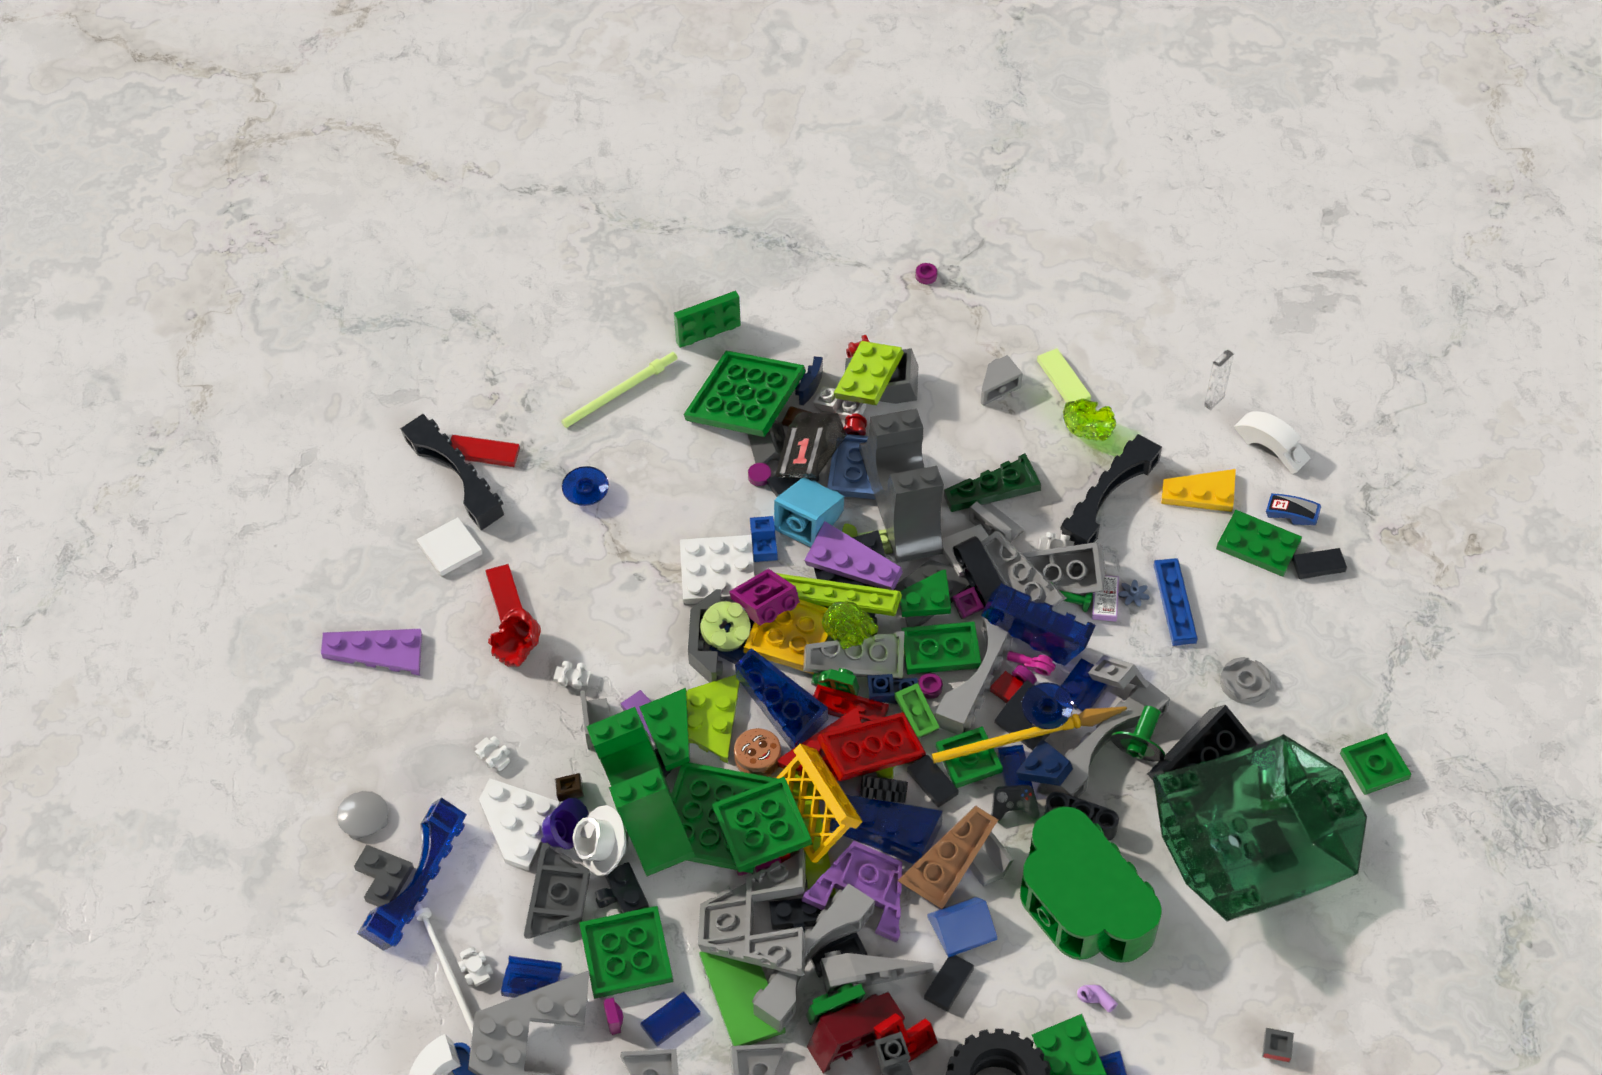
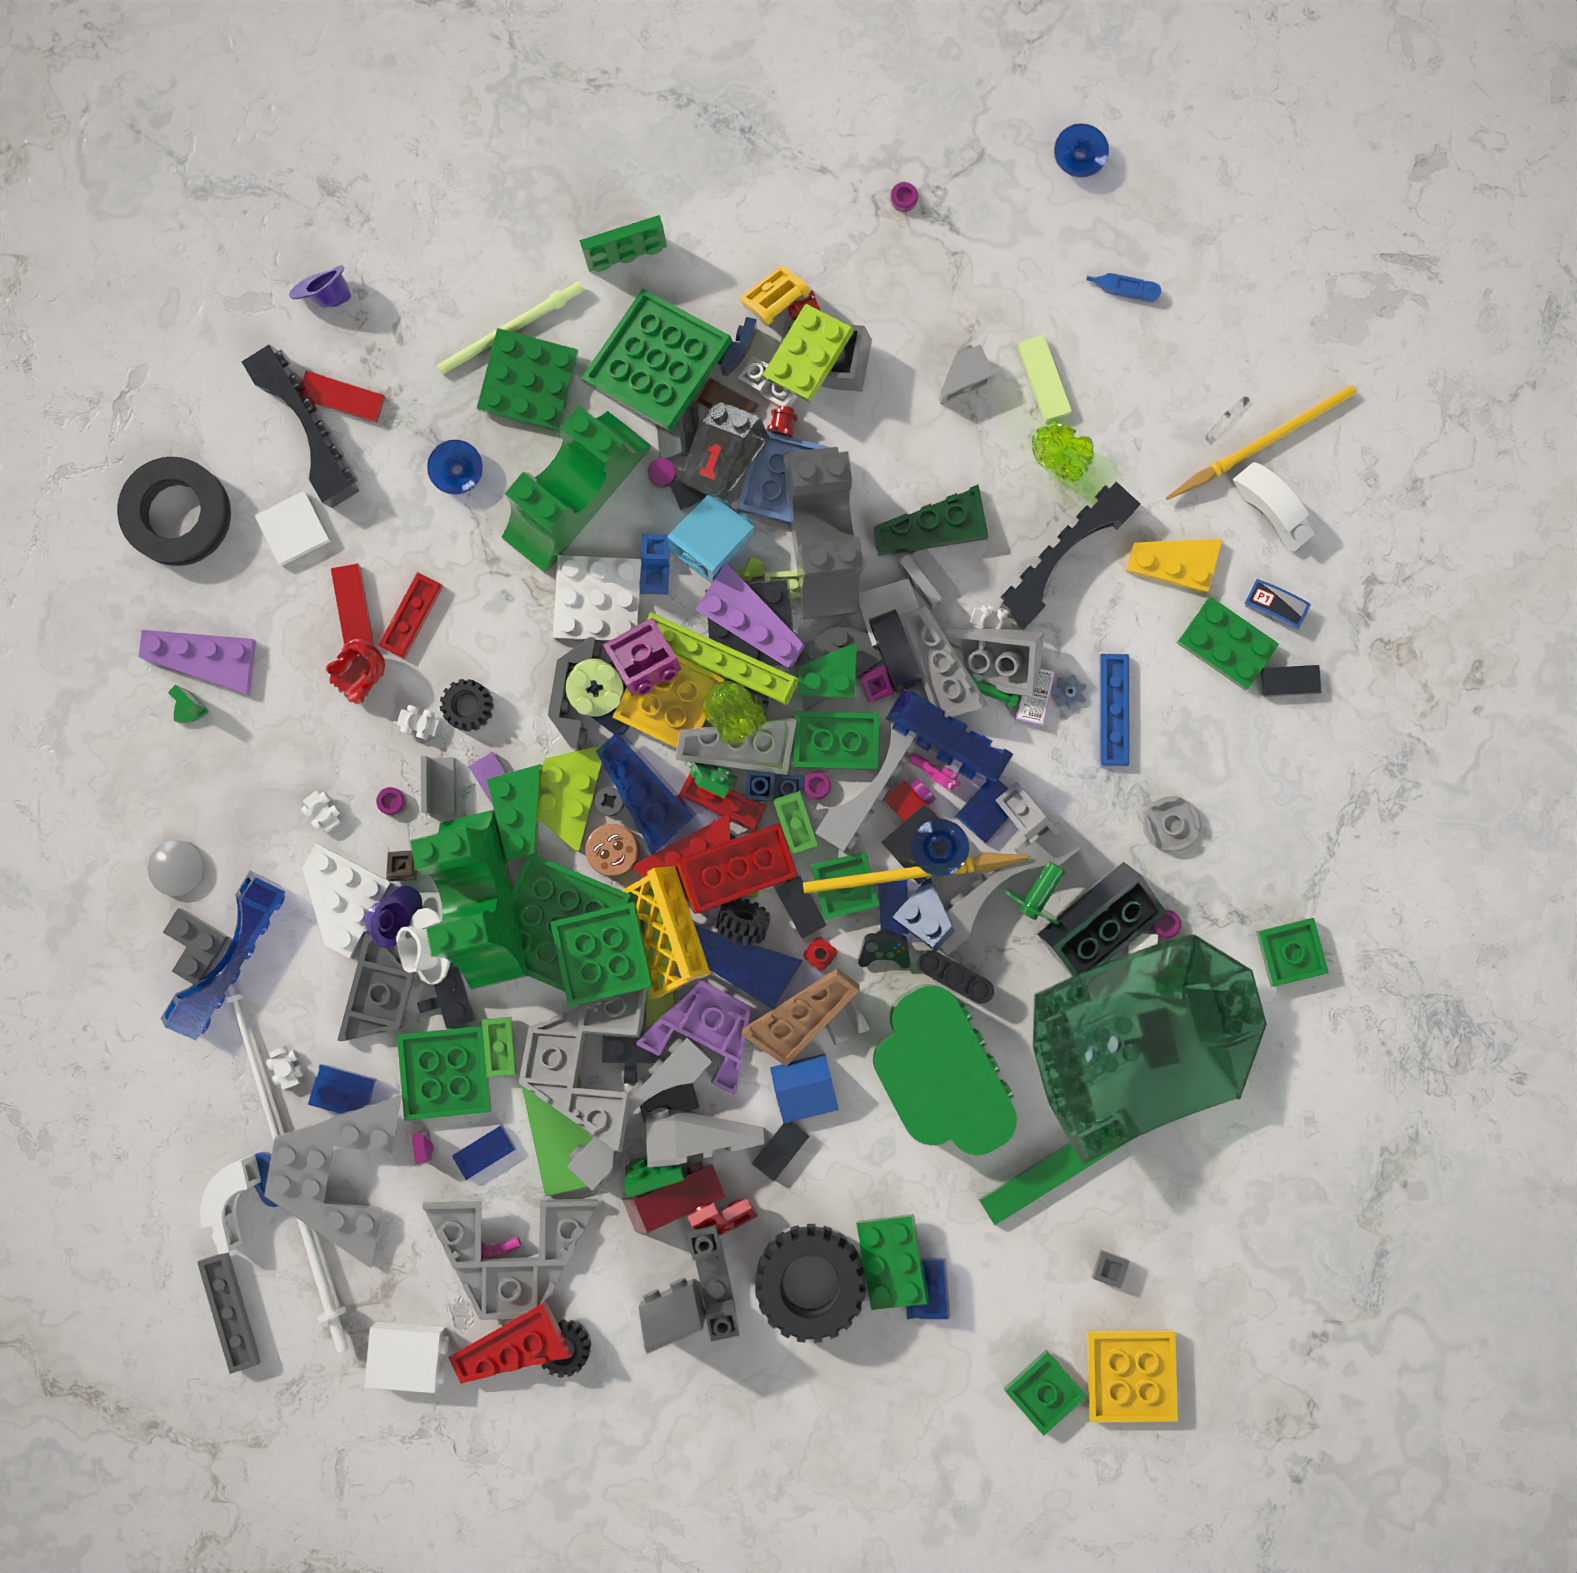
camera: 10 degrees right, 30 degrees up
(355, 569) = (142, 489): none -> black tyre
(368, 683) = (187, 706): none -> green tile
(467, 378) = (324, 288): none -> dark purple piece
(554, 740) = (391, 801): none -> magenta tile
(557, 598) = (410, 615): none -> red tile
(611, 645) = (450, 700): none -> black tyre
(639, 421) = (527, 379): none -> green plate
(675, 923) = (499, 1046): none -> bright green plate
(682, 491) = (566, 495): none -> green piece
(747, 721) = (613, 805): none -> dark grey wheel
(834, 341) = (764, 297): none -> yellow plate
(955, 810) = (820, 964): none -> red brick
(1060, 228) = (1082, 139): none -> clear blue dish
(1096, 994) = (932, 1184): lavender arm -> none
(1117, 312) = (1127, 286): none -> blue piece
(1209, 966) = (1035, 1182): none -> green tile
(1221, 421) = (1221, 466): none -> yellow piece

